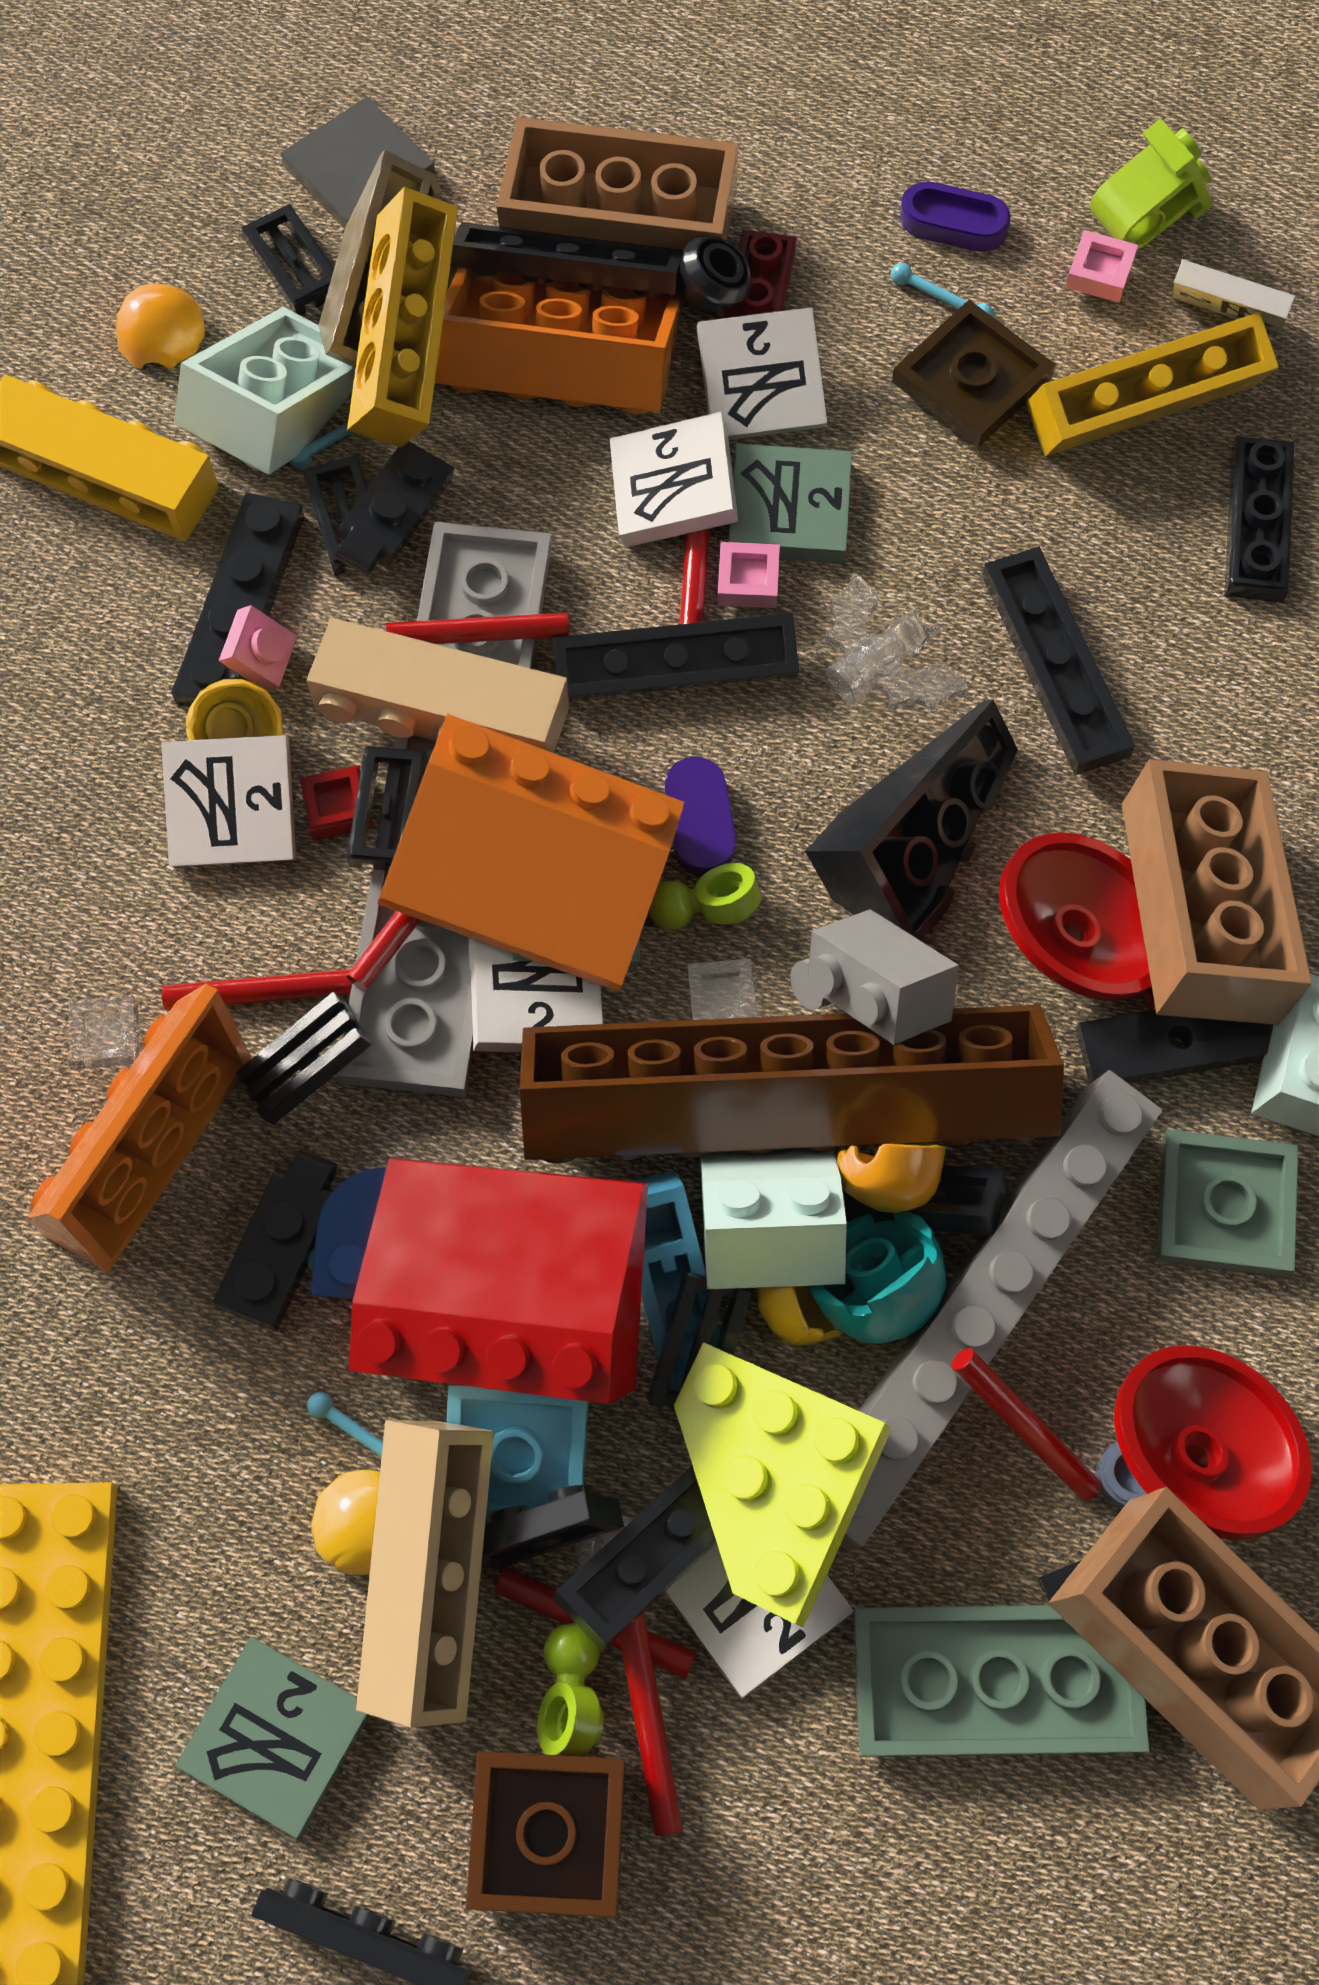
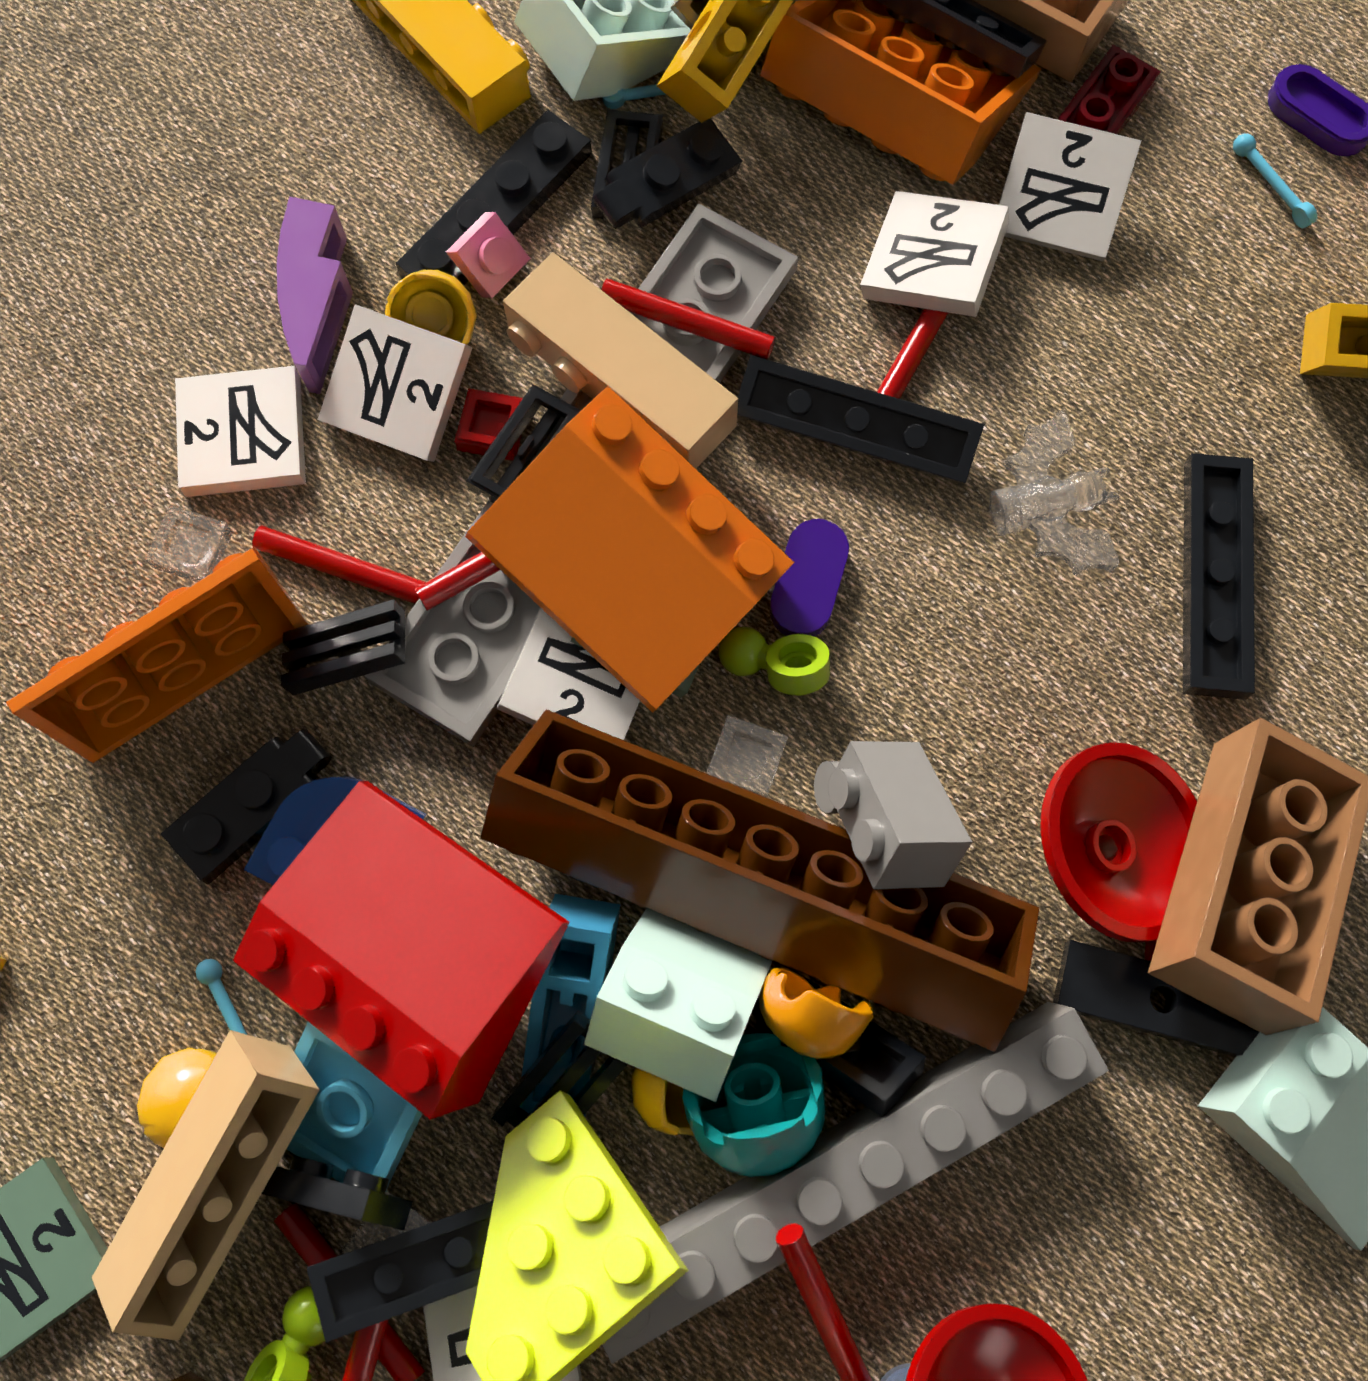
camera: 25 degrees right, 5 degrees up
(96, 909) = (239, 431): none -> white tile
(102, 745) = (312, 286): none -> medium lavender slope
(713, 275) = (1062, 73): black cone -> none
(748, 575) = (962, 371): bright pink plate -> none
(793, 500) = (1035, 319): sand green tile -> none
(914, 827) = (994, 681): black wedge -> none
(973, 373) = (1268, 266): dark brown plate -> none
(1227, 1203) = (1133, 1182): sand green tile -> none

